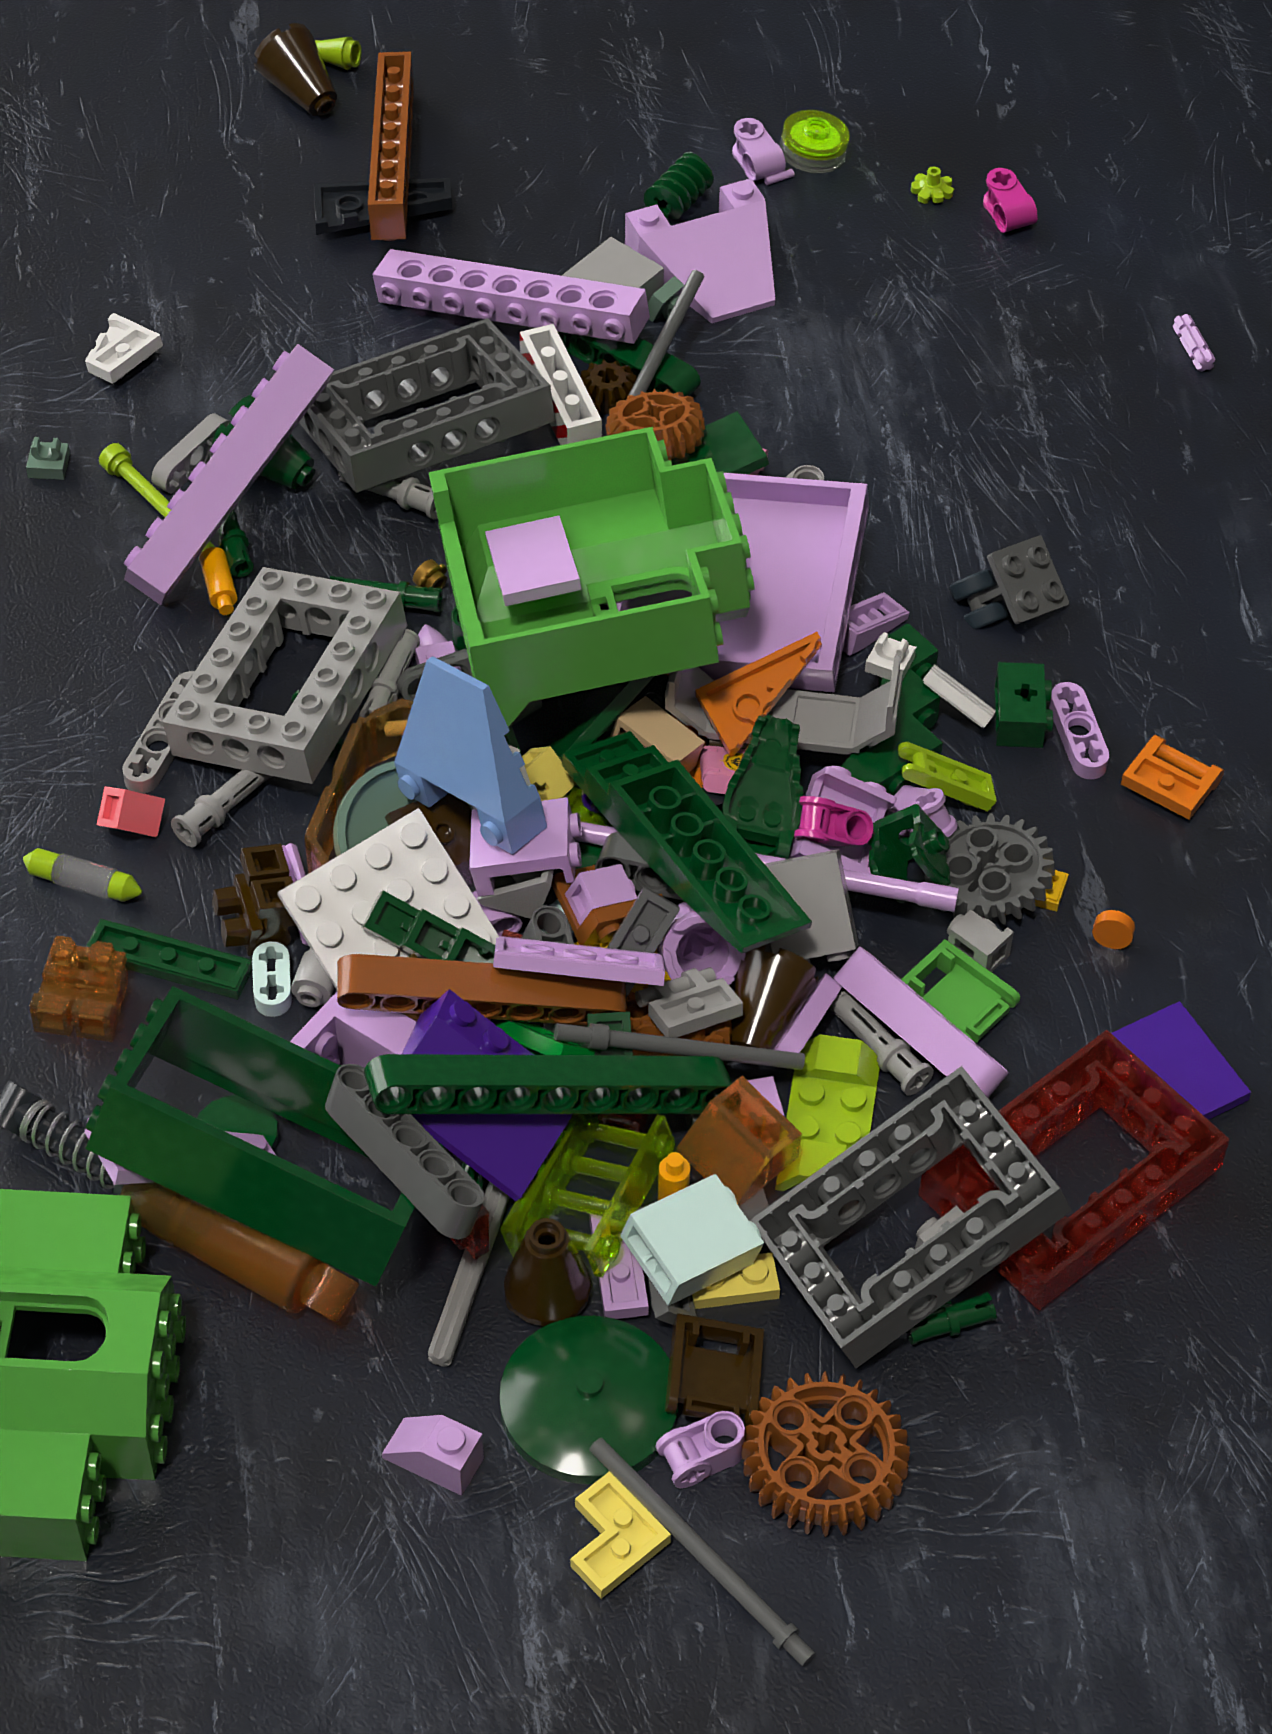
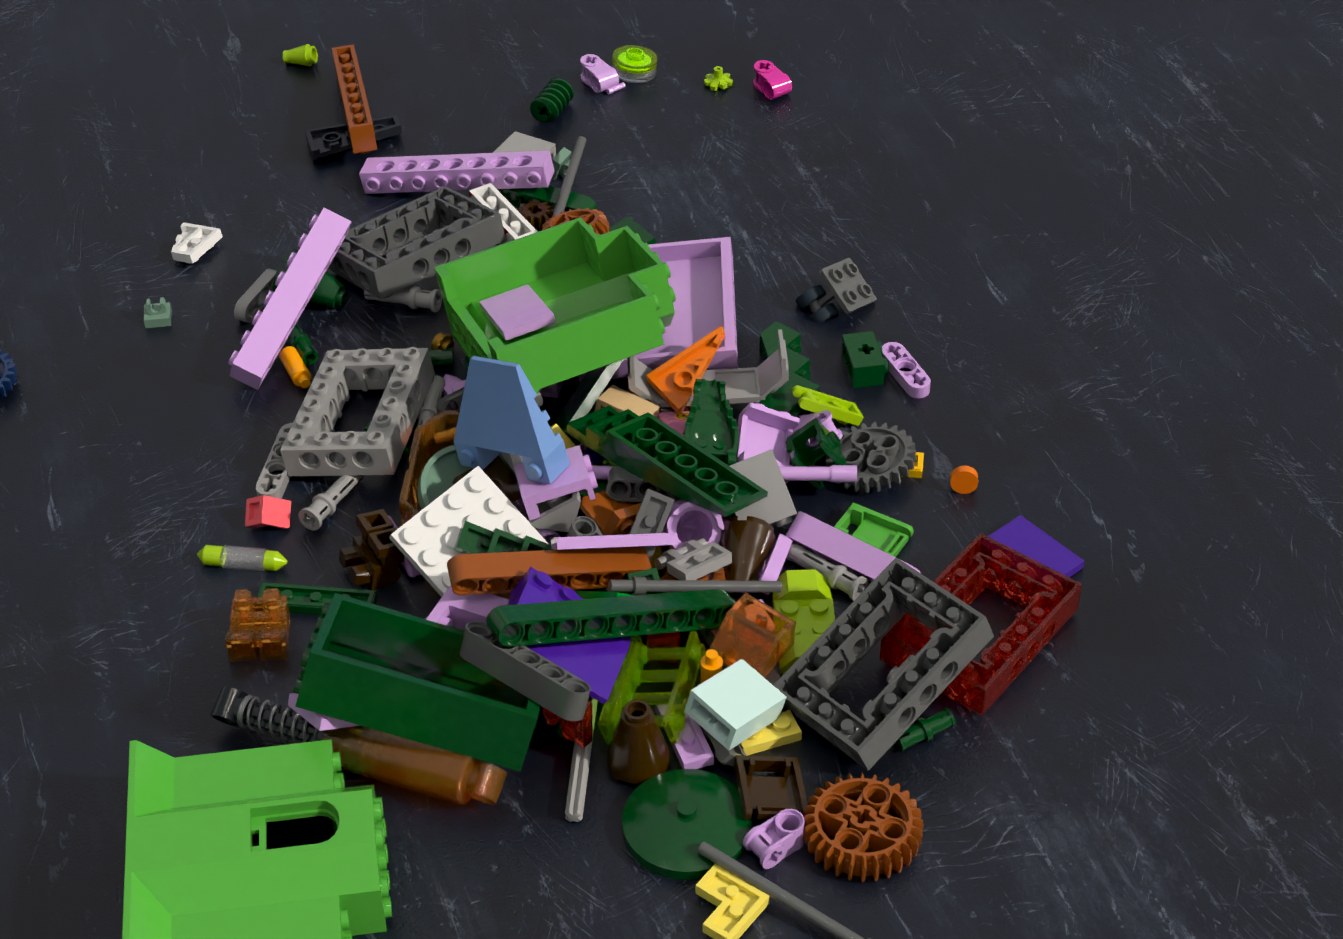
camera: 10 degrees left, 10 degrees down
(118, 462) = (208, 308): lime piece -> none
(280, 978) = (399, 597): light aqua beam -> none
(296, 68) = (277, 66): dark brown cone -> none
(311, 982) = (423, 595): light grey brick -> none
(437, 1450) = (588, 872): lavender slope -> none
(599, 889) = (612, 499): lavender brick -> none
(724, 246) = (595, 121): lavender wedge -> none
(833, 823) = (761, 437): dark pink piece -> none
(867, 623) = (750, 326): lavender slope -> none
(882, 656) = (768, 340): white tile -> none
(958, 696) = (821, 359): white tile -> none
(980, 939) = (877, 498): light grey brick -> none
(1167, 781) = (974, 387): orange plate -> none
(1194, 342) = (913, 142): lavender axle -> none

